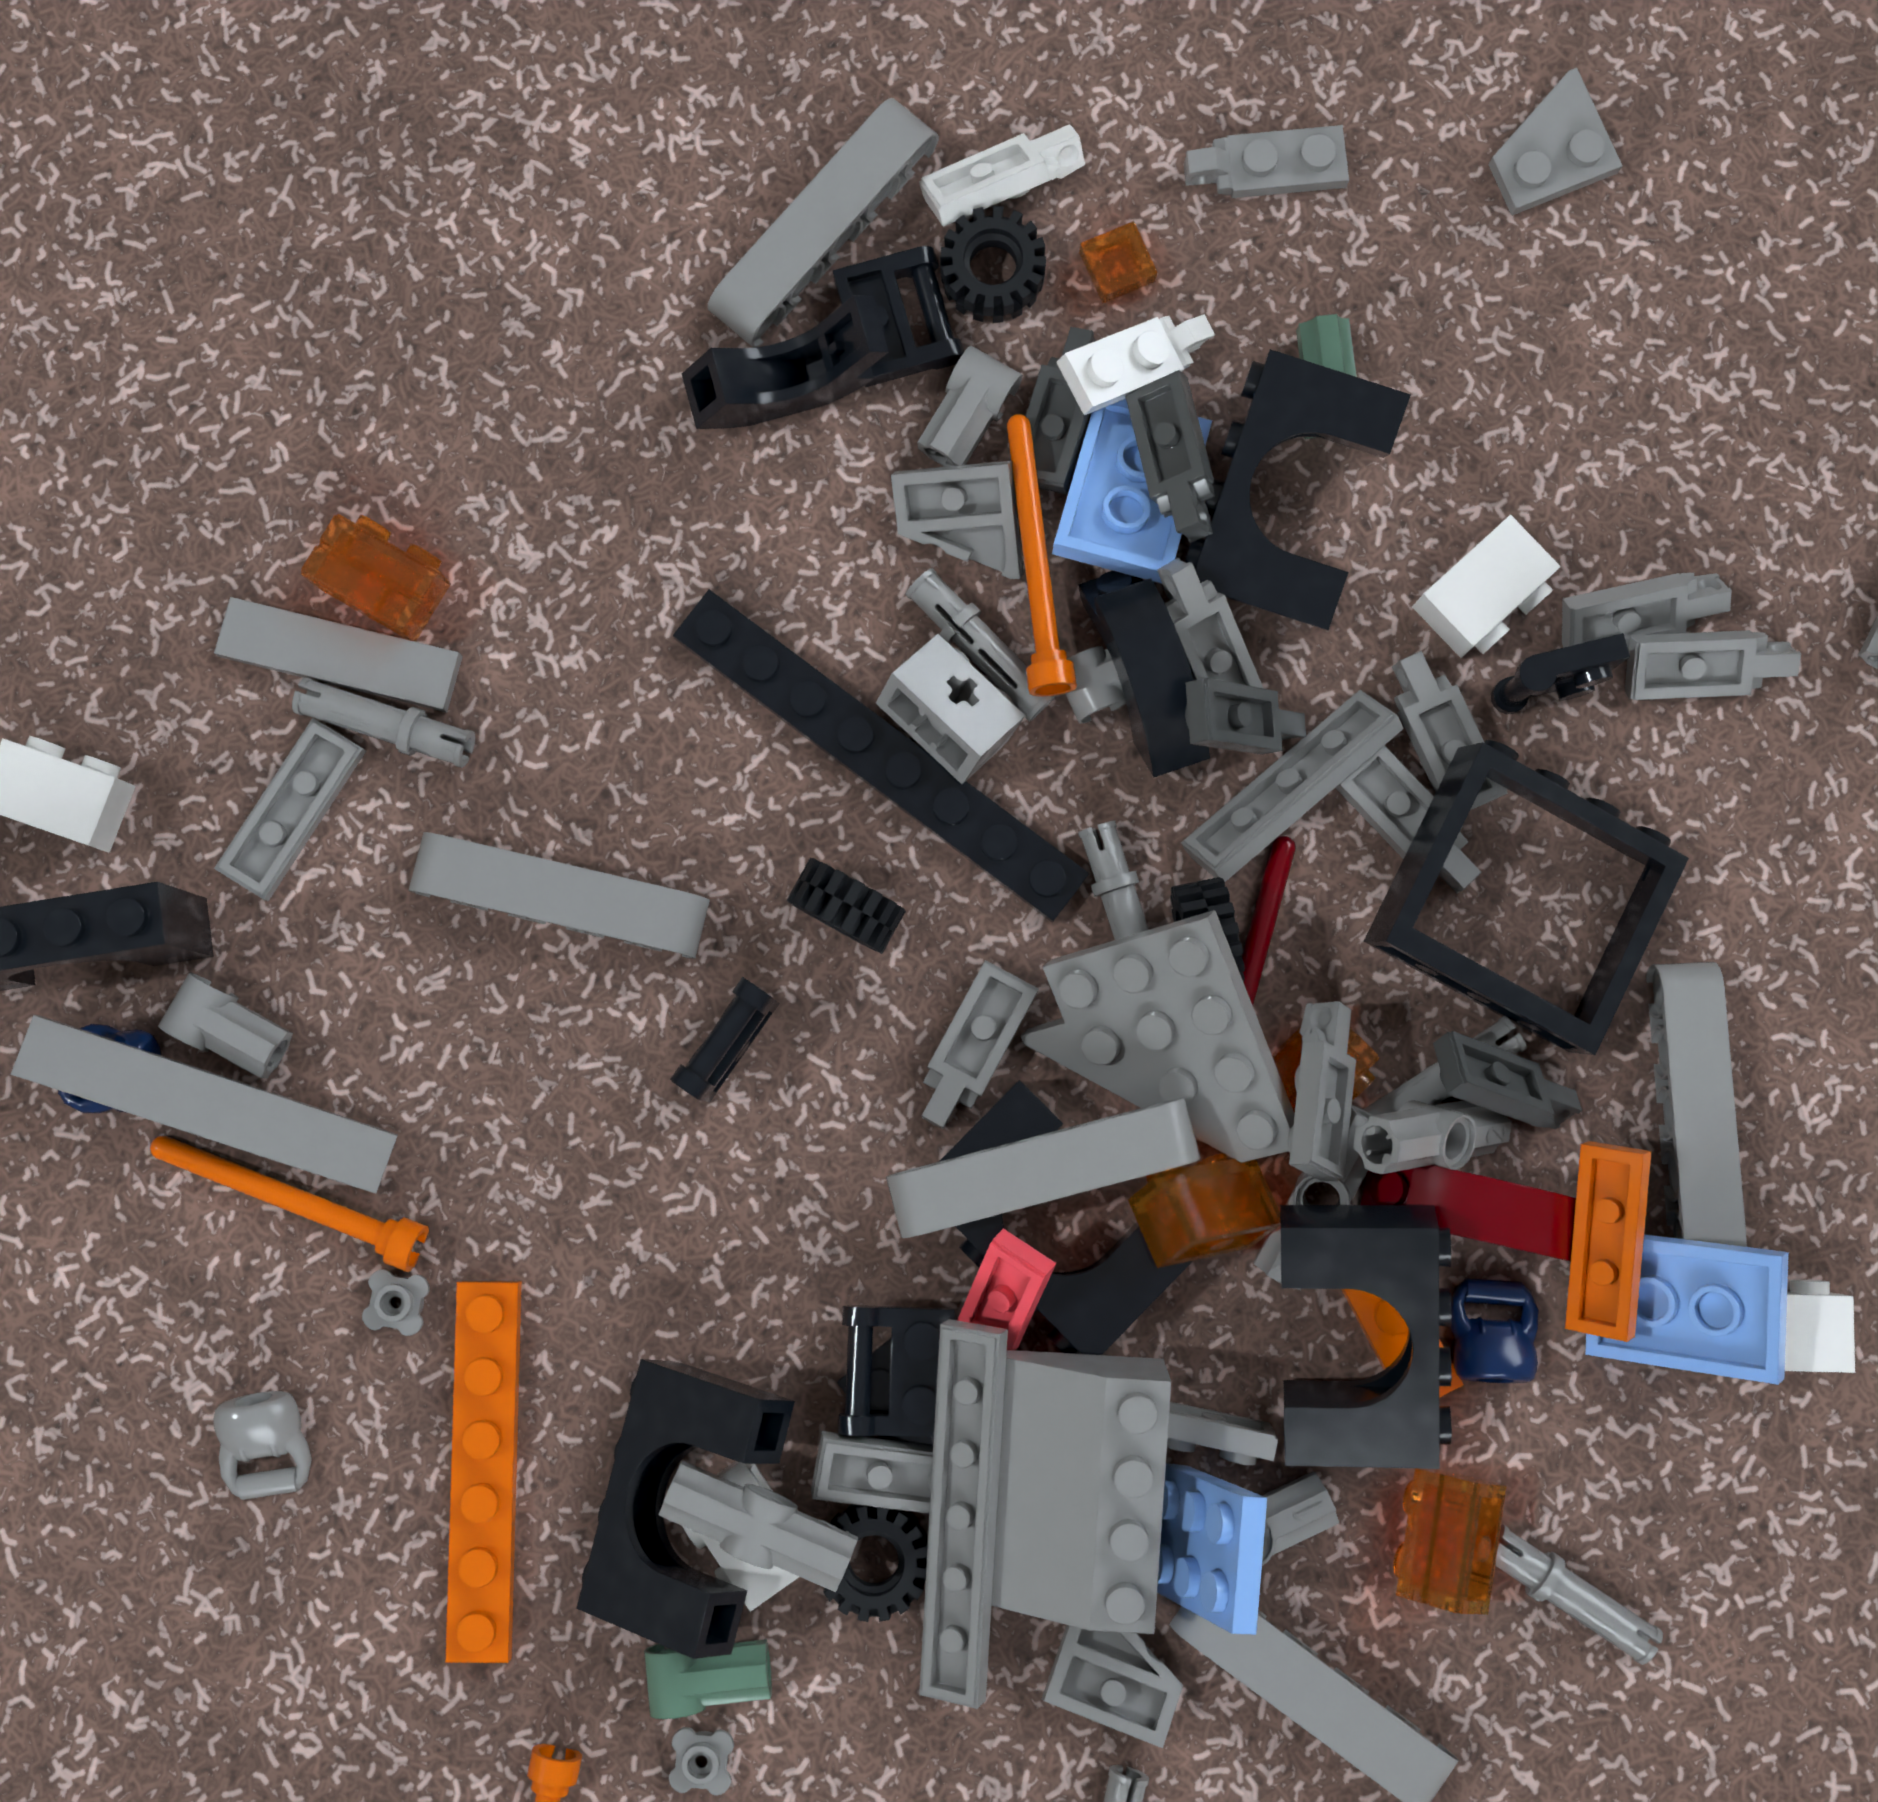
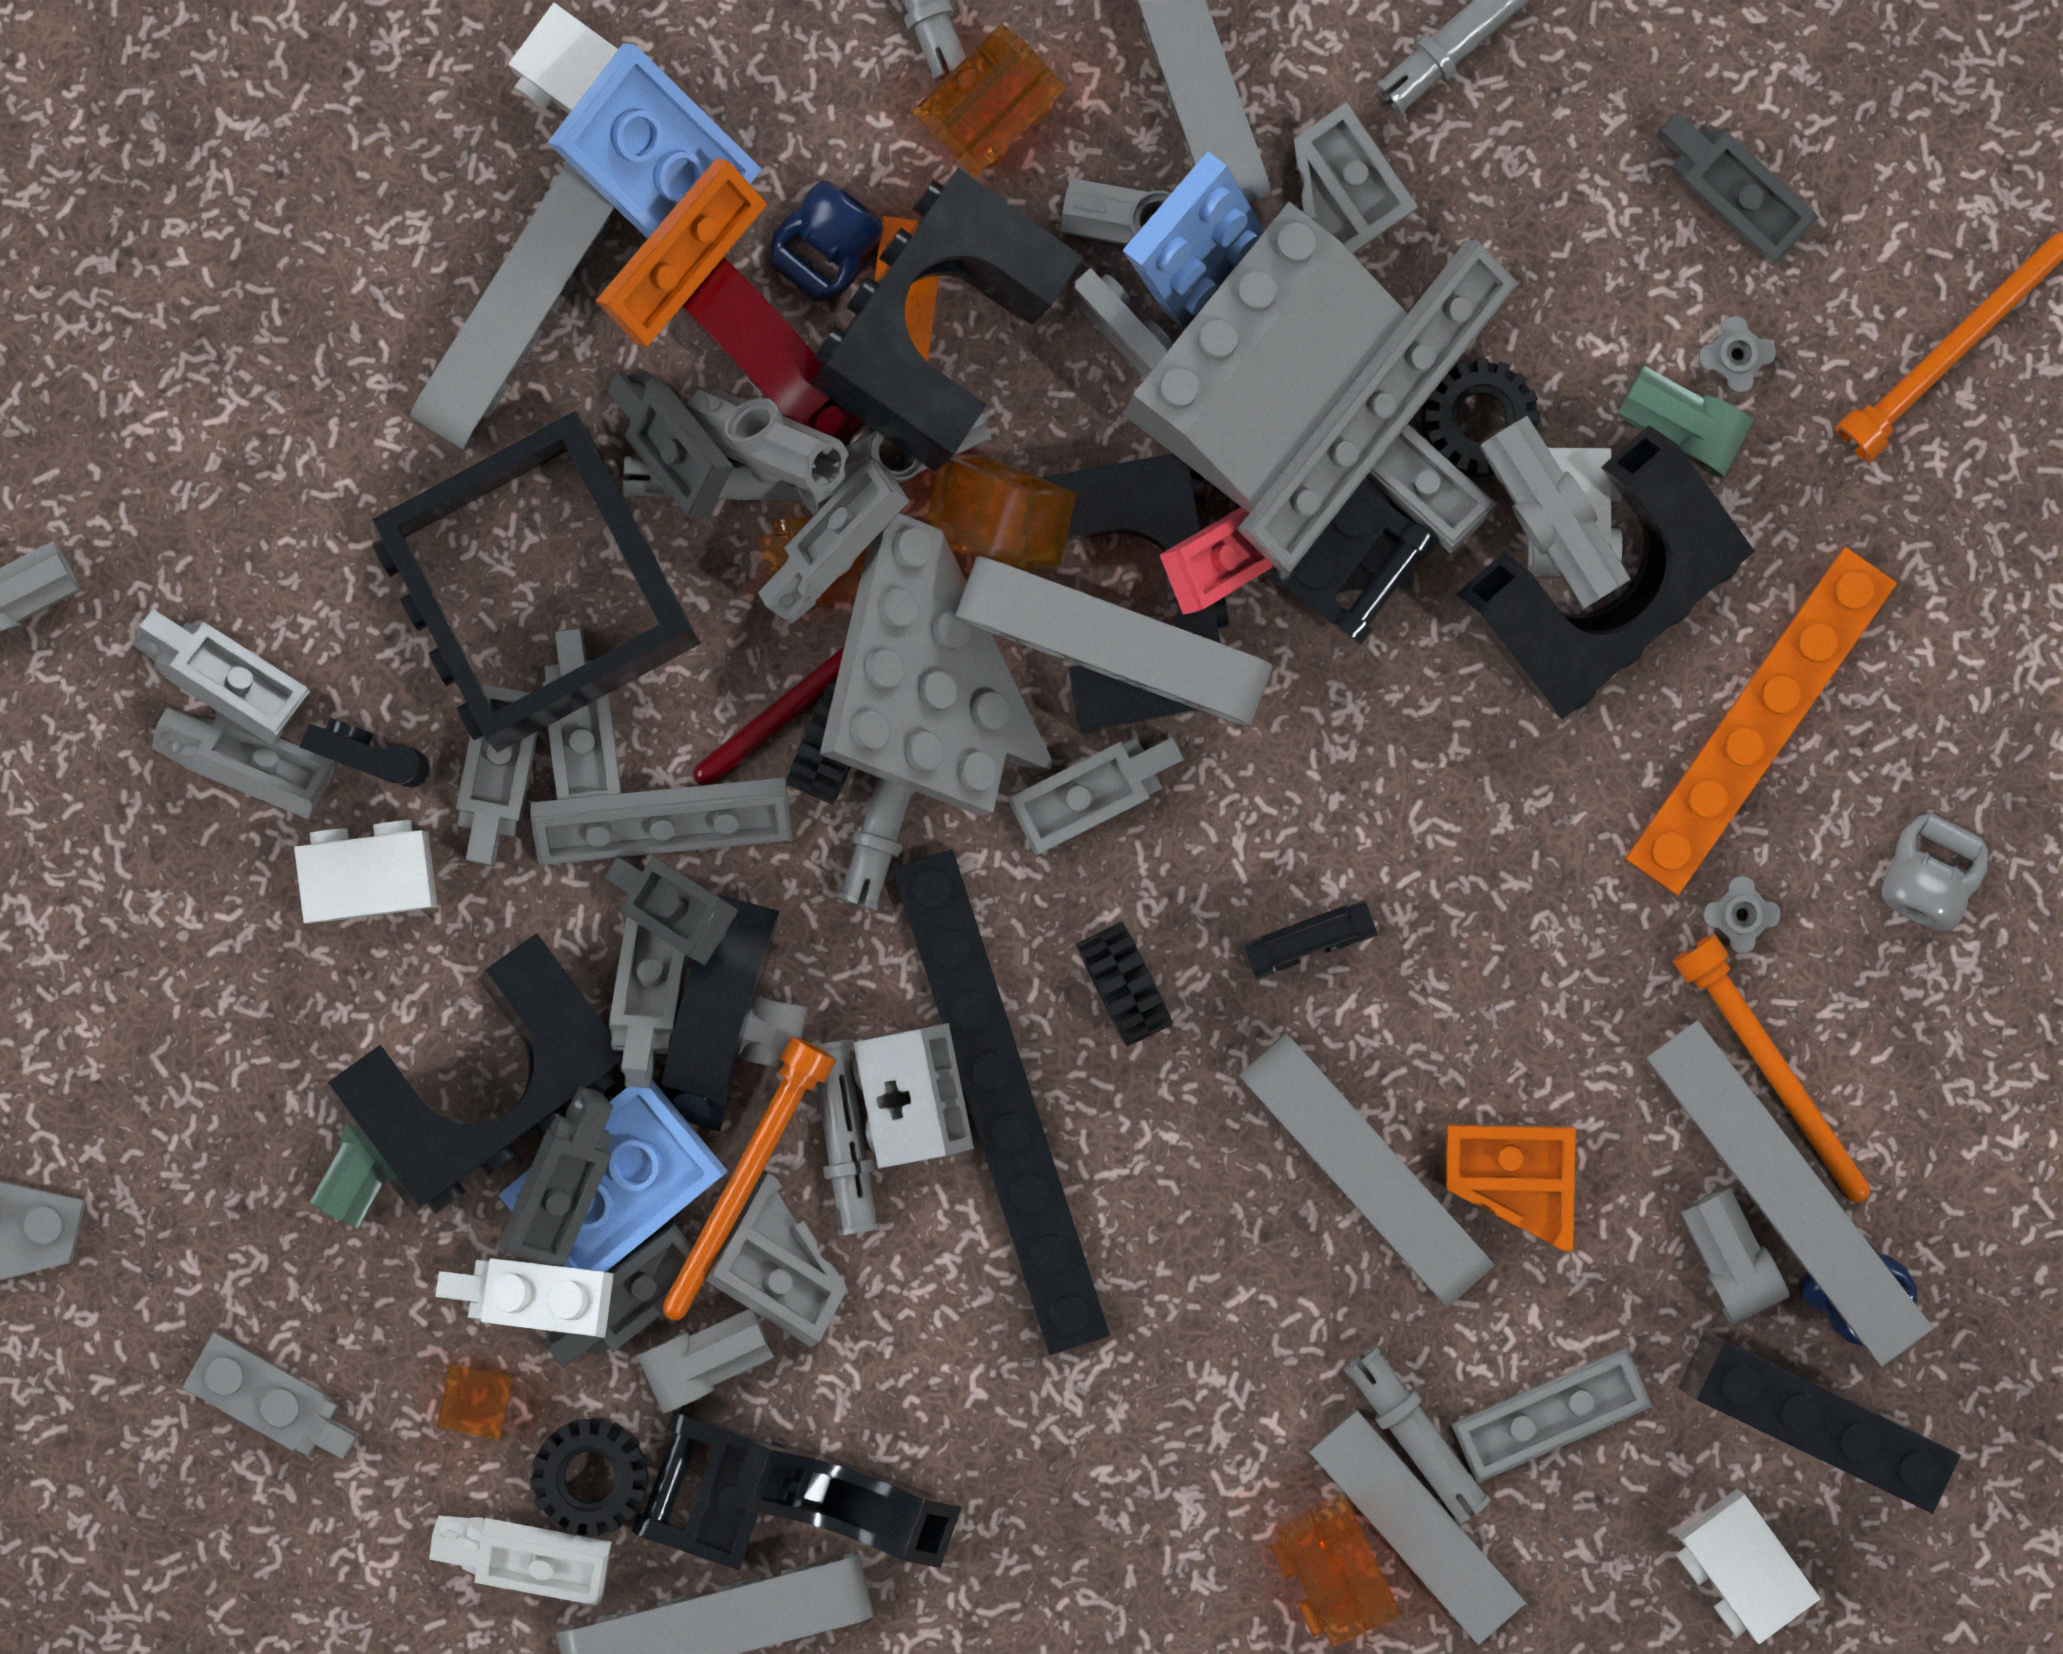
camera: 155 degrees left, 5 degrees up
(439, 974) = (1517, 1175): none -> orange wing

